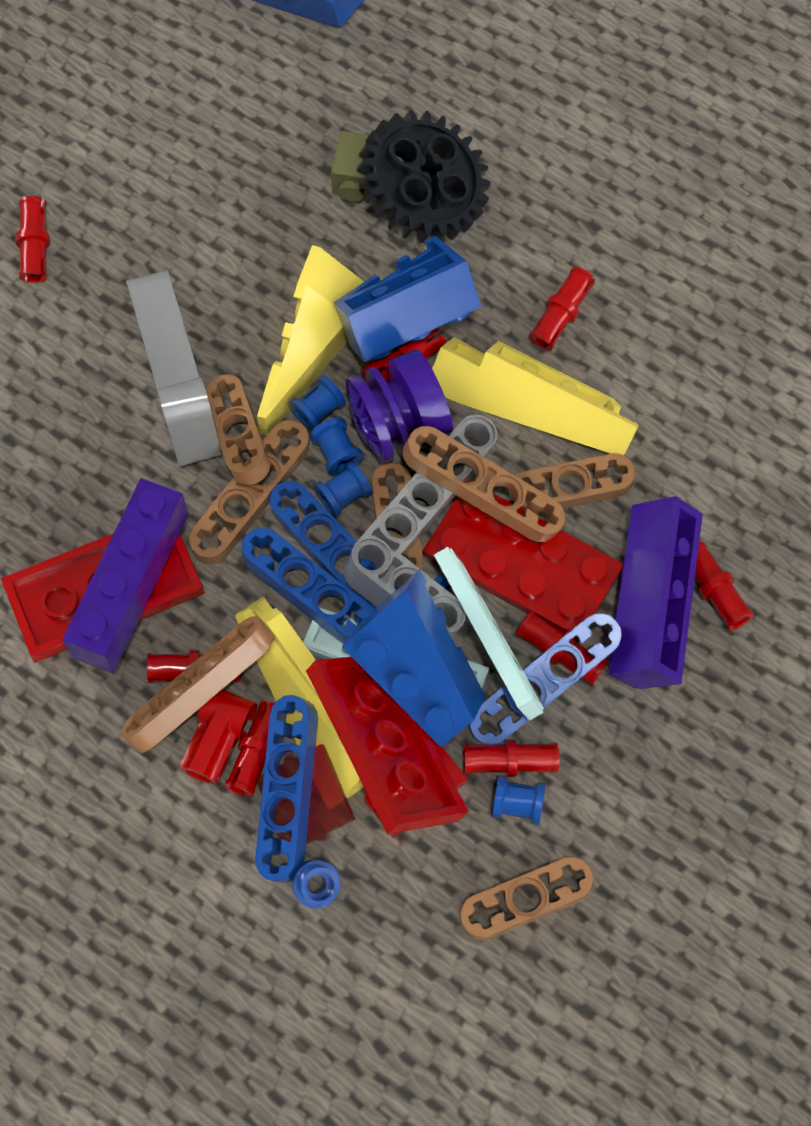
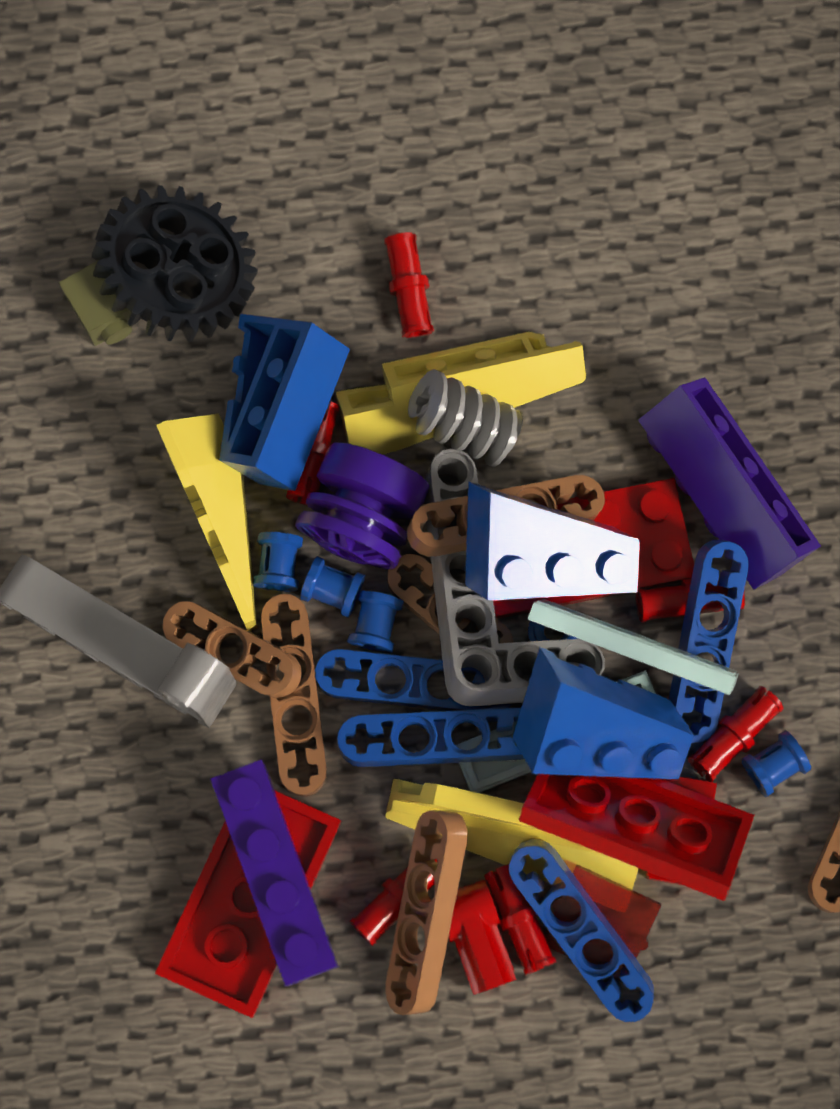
camera: 45 degrees left, 10 degrees up
(328, 890) = (690, 986): blue plate -> none
(483, 518) = (542, 552): none -> wedge
(516, 408) = (465, 417): none -> light grey piece
(605, 486) = (573, 406): medium nougat beam -> none
(718, 588) = (774, 431): red pin -> none

